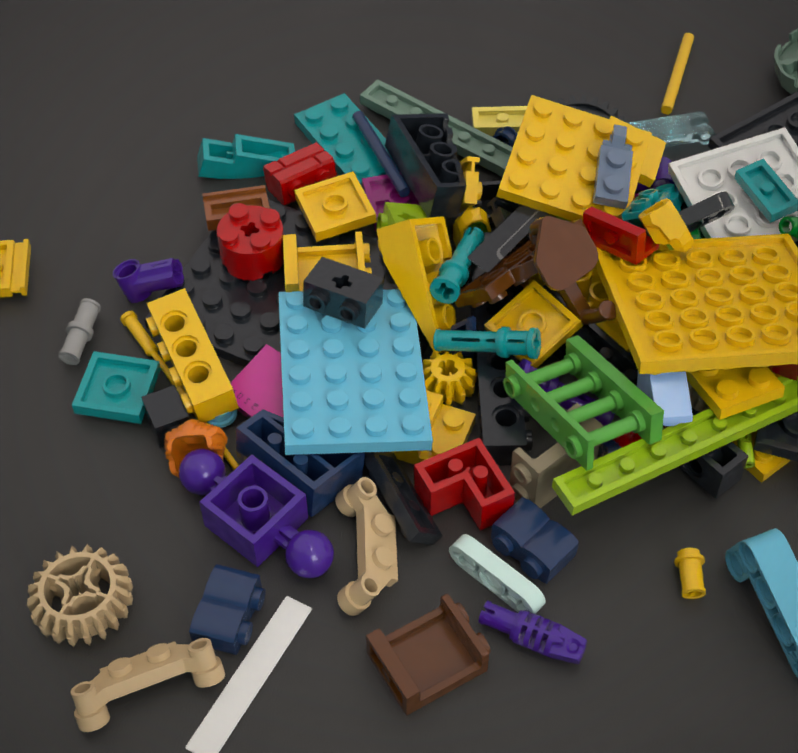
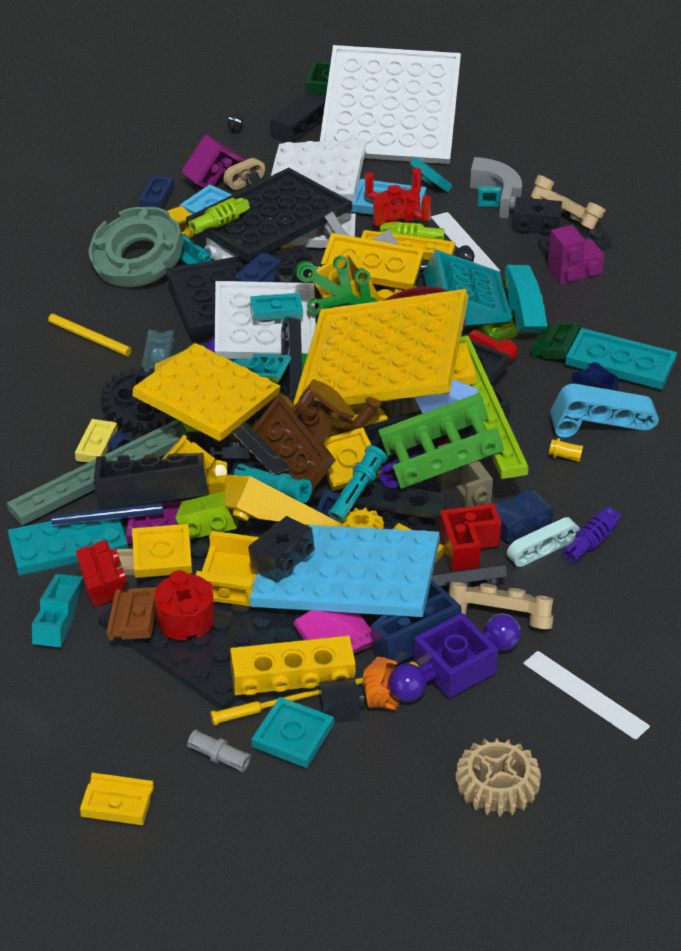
camera: 75 degrees left, 10 degrees down
(140, 280) = (185, 686): dark purple piece -> none
(141, 671) = (575, 748): tan plate -> none
(227, 608) = (533, 690): dark blue brick -> none
(429, 655) = (595, 590): reddish brown panel -> none
(613, 170) = (231, 366): sand blue hinge -> none
(618, 236) = (296, 382): red panel -> none
(666, 226) = (305, 351): yellow rock -> none

